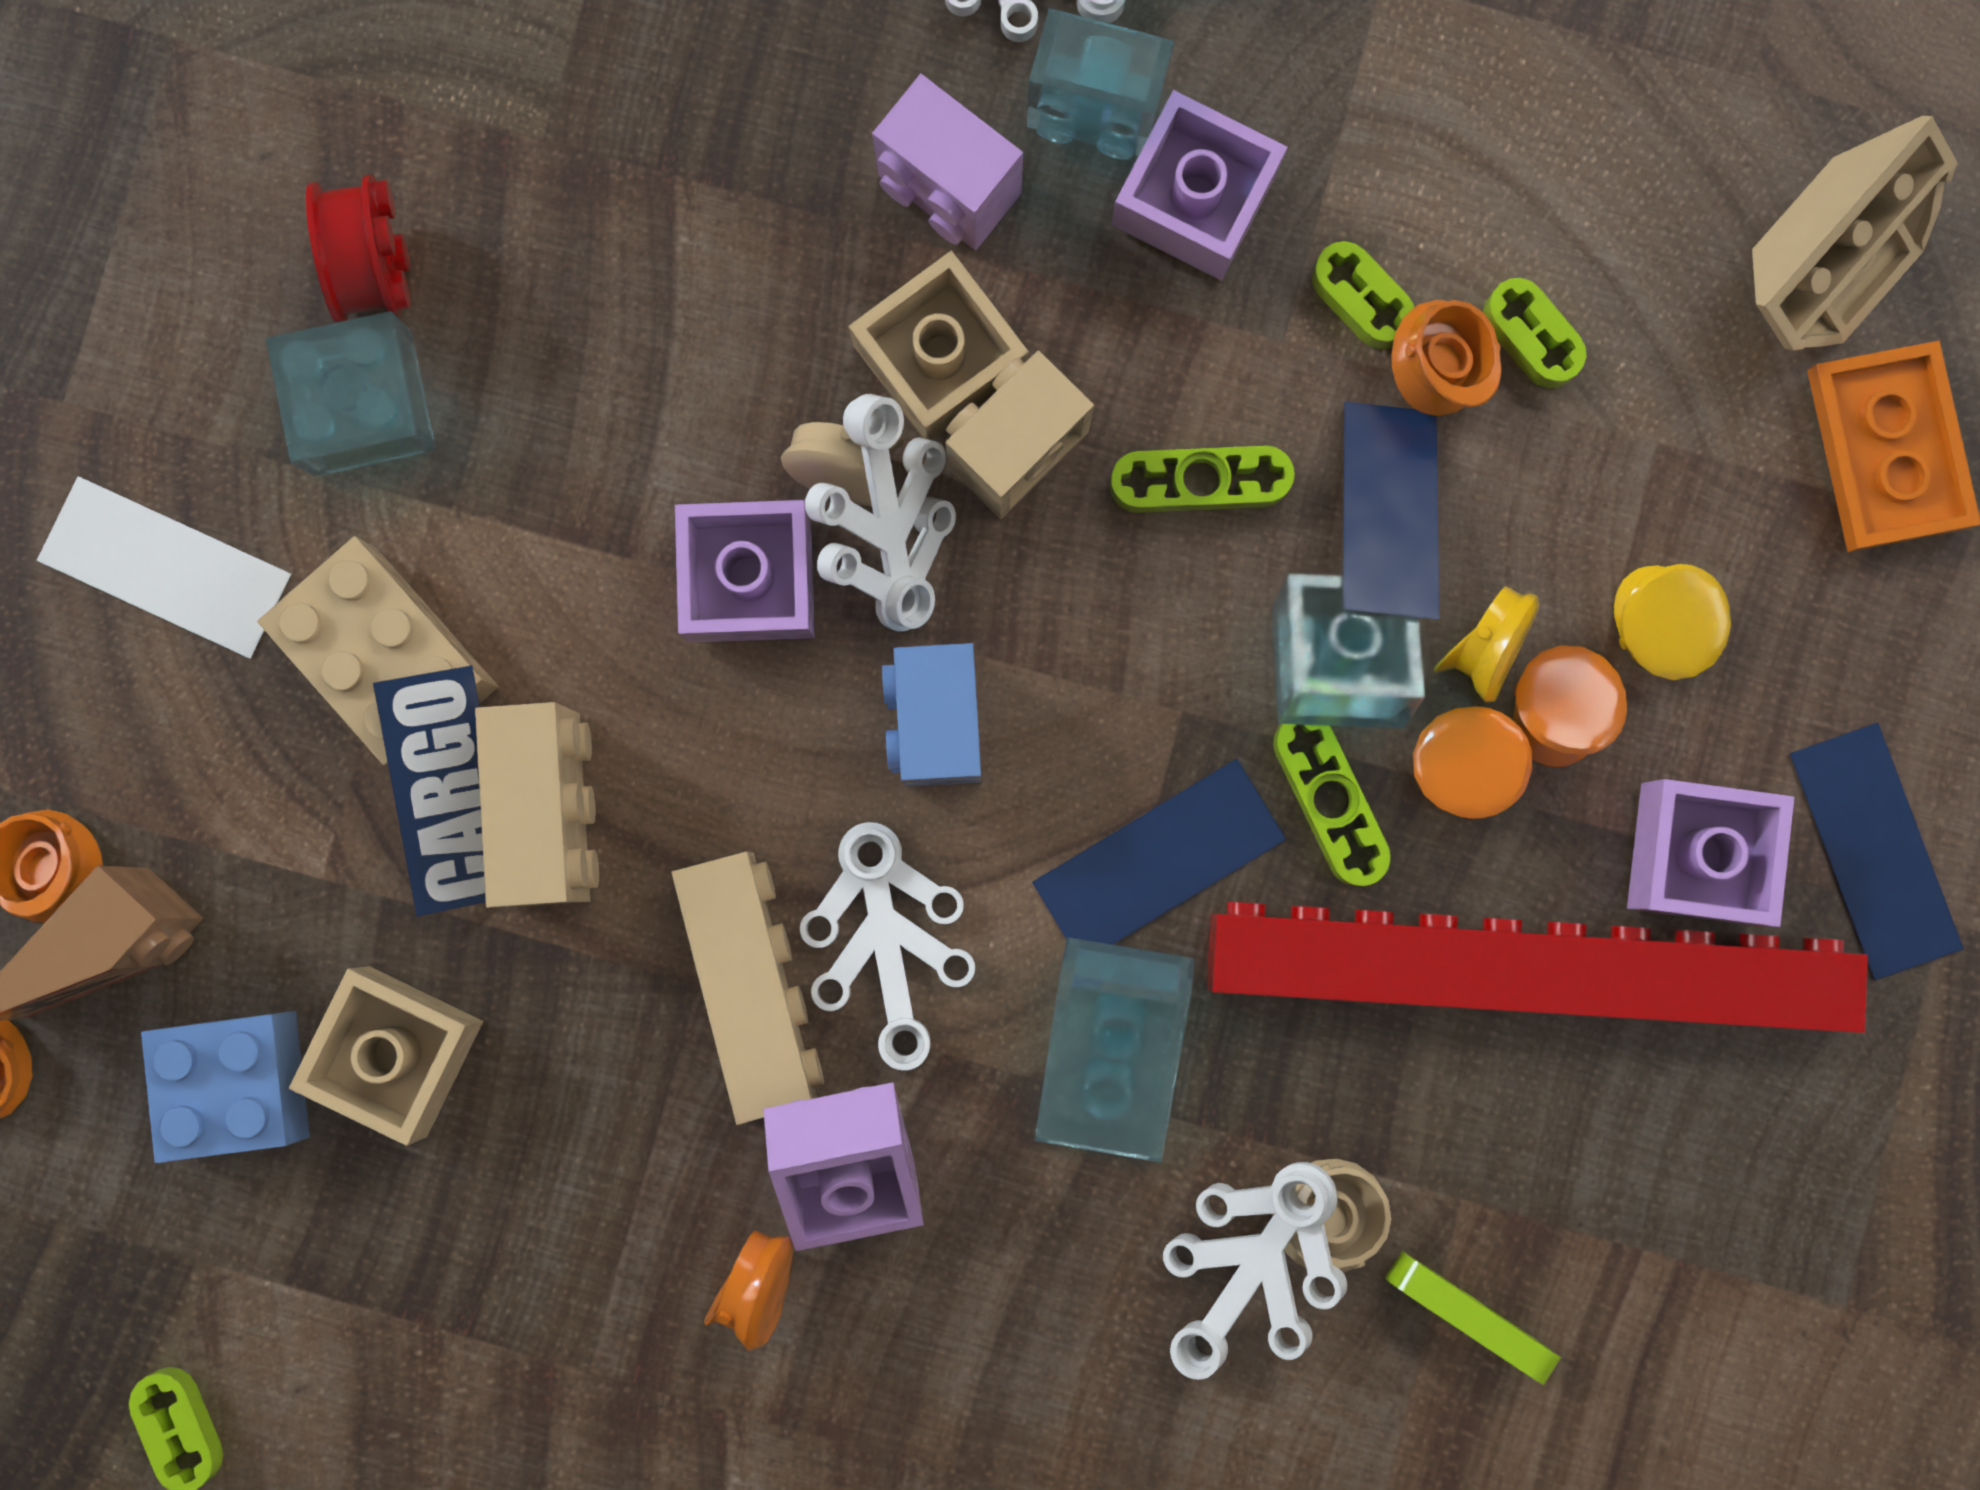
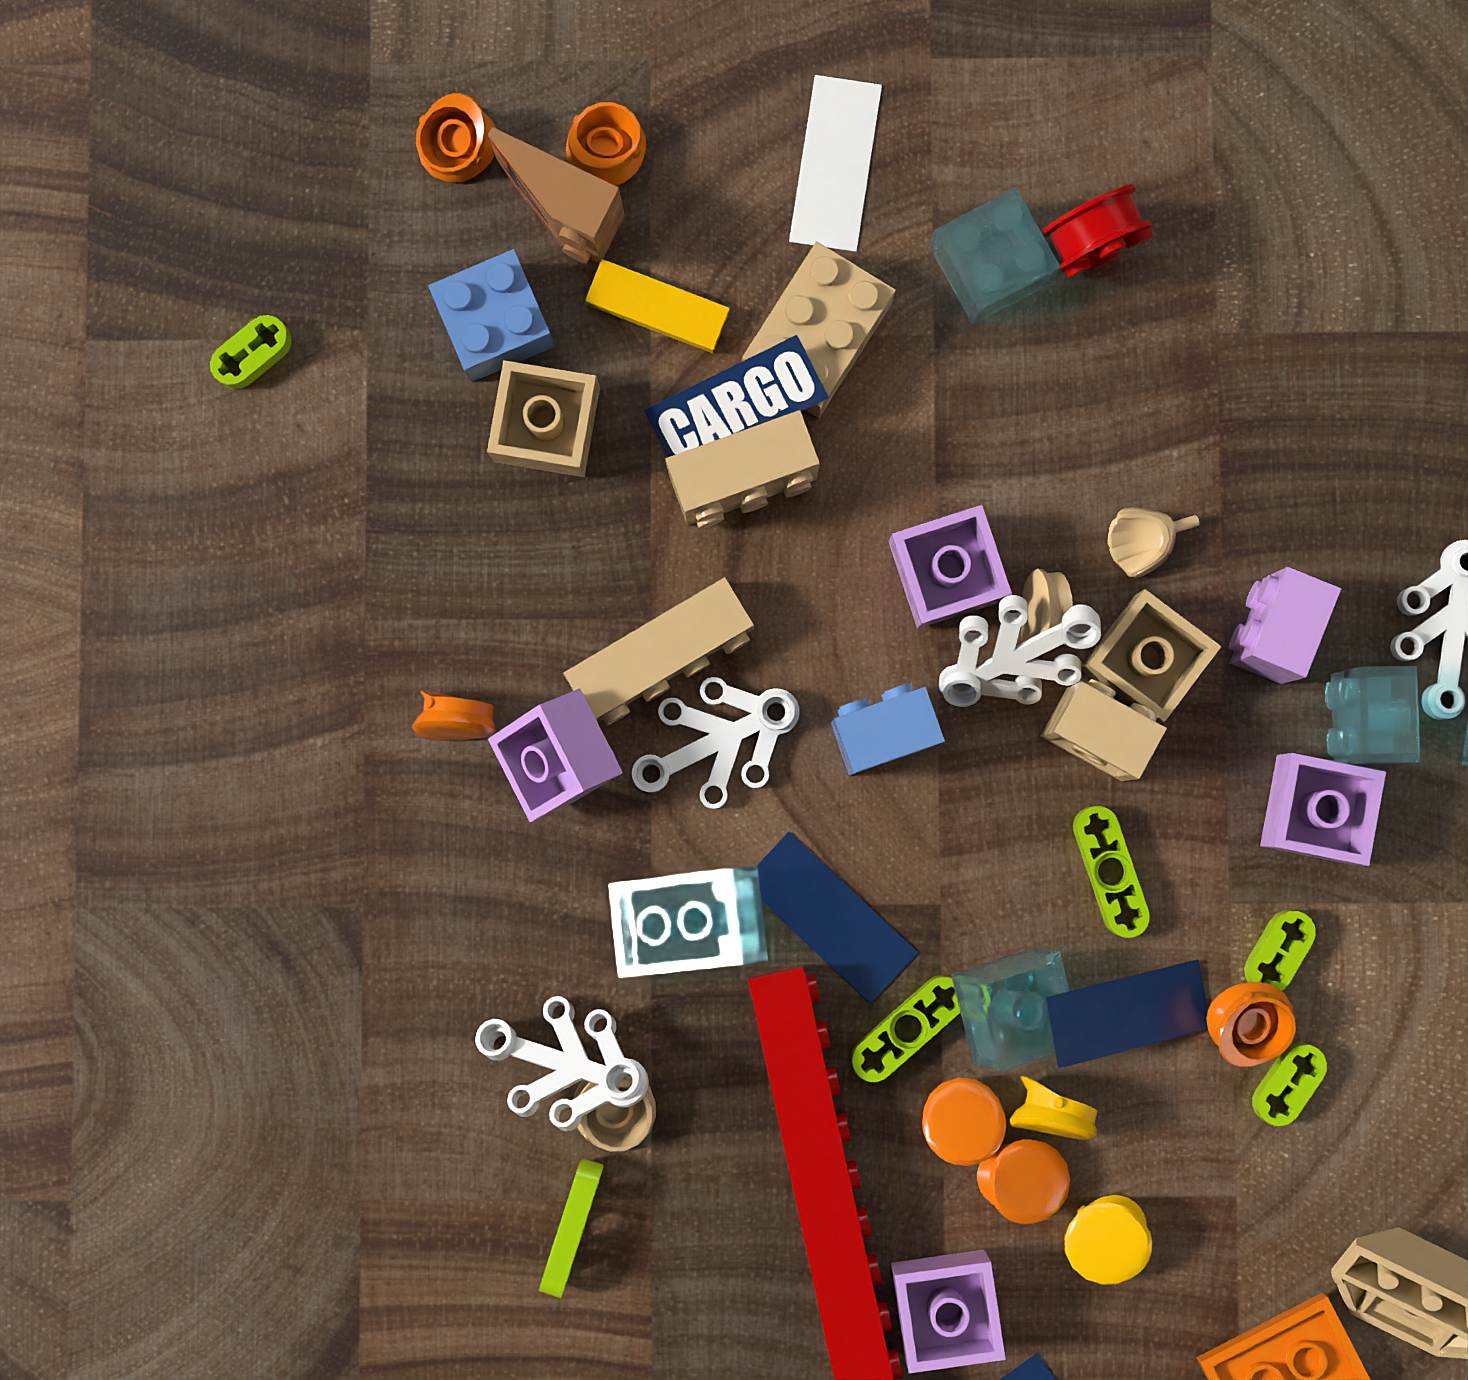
camera: 80 degrees right, 0 degrees up
(282, 858) = (657, 306): none -> yellow tile
(782, 310) = (1144, 538): none -> tan piece

